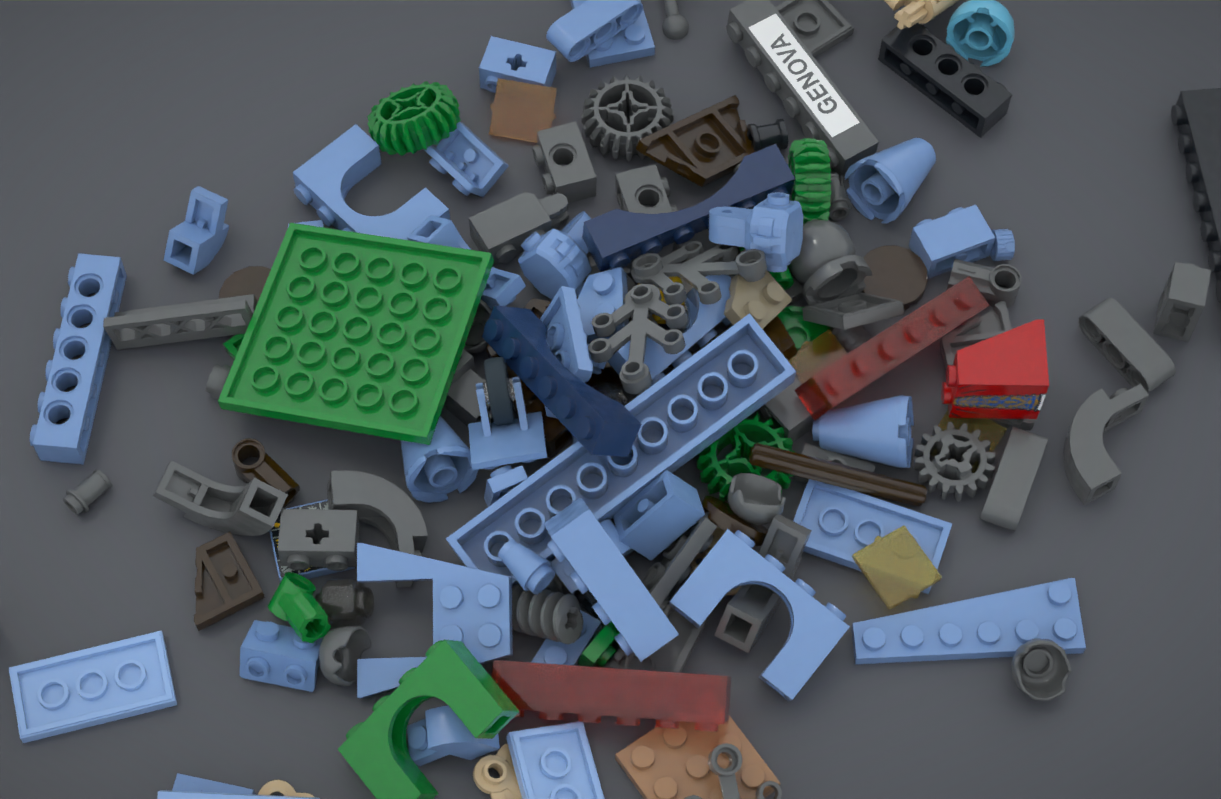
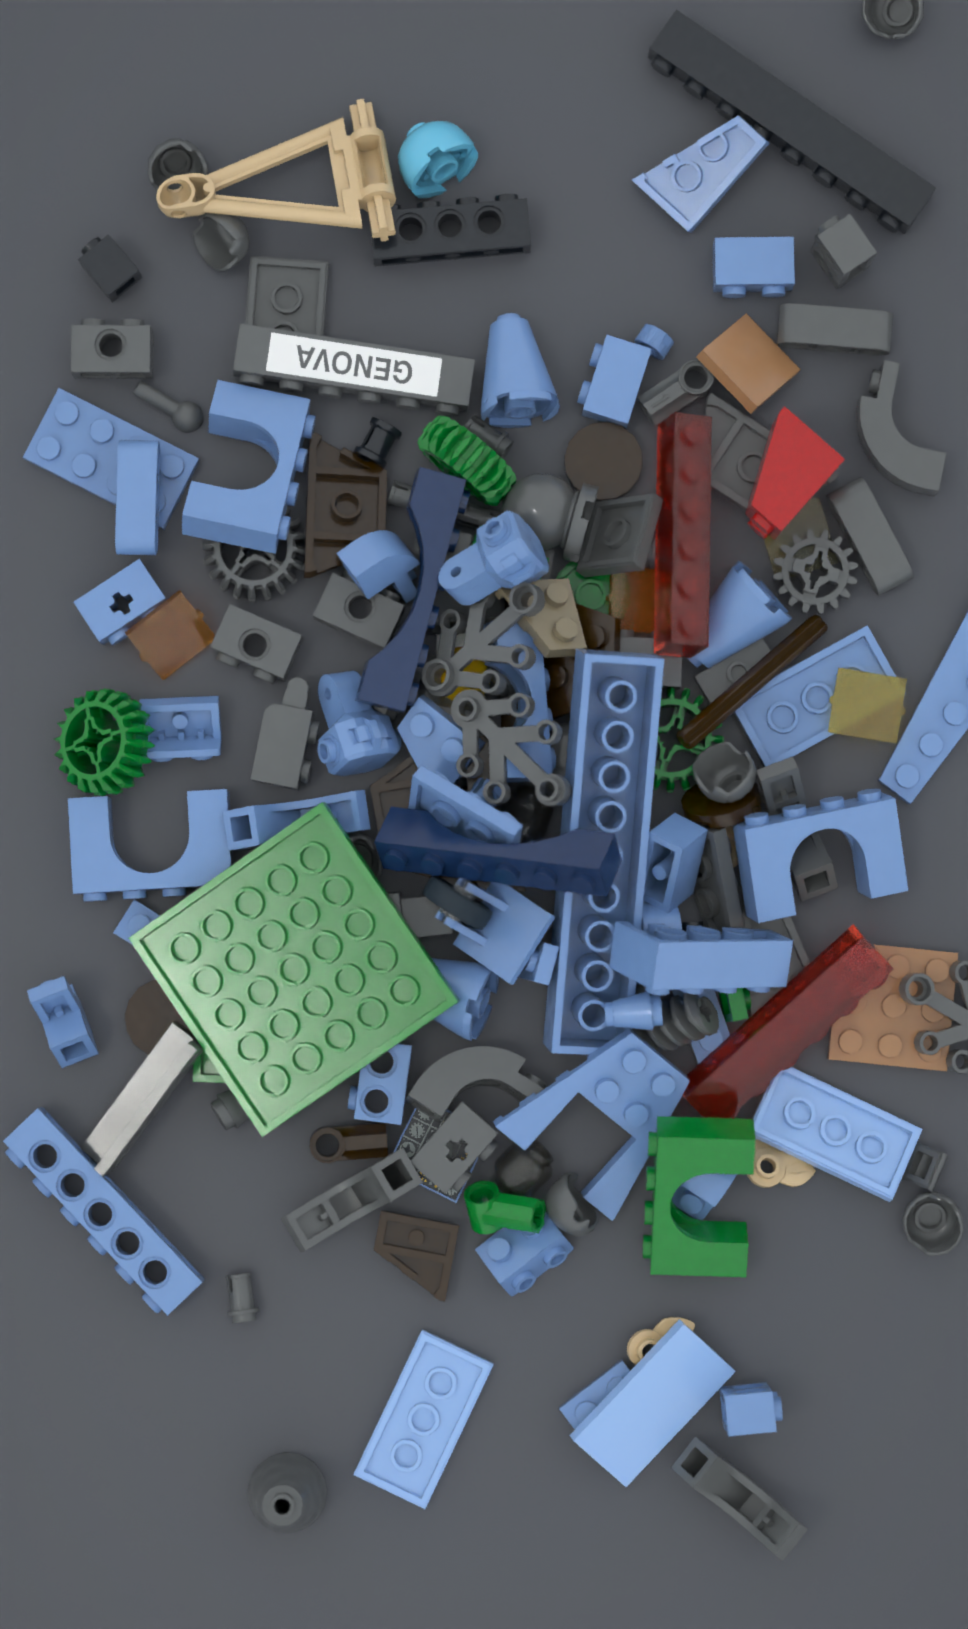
camera: 50 degrees left, 25 degrees up
(321, 453) = (391, 1083): none -> medium blue brick
(654, 86) = (253, 515): none -> medium blue arch
(688, 176) = (378, 561): none -> medium blue brick
(1052, 299) = (748, 363): none -> medium nougat tile
(1114, 263) = (753, 266): none -> medium blue brick
(1135, 187) = (700, 175): none -> medium blue wing

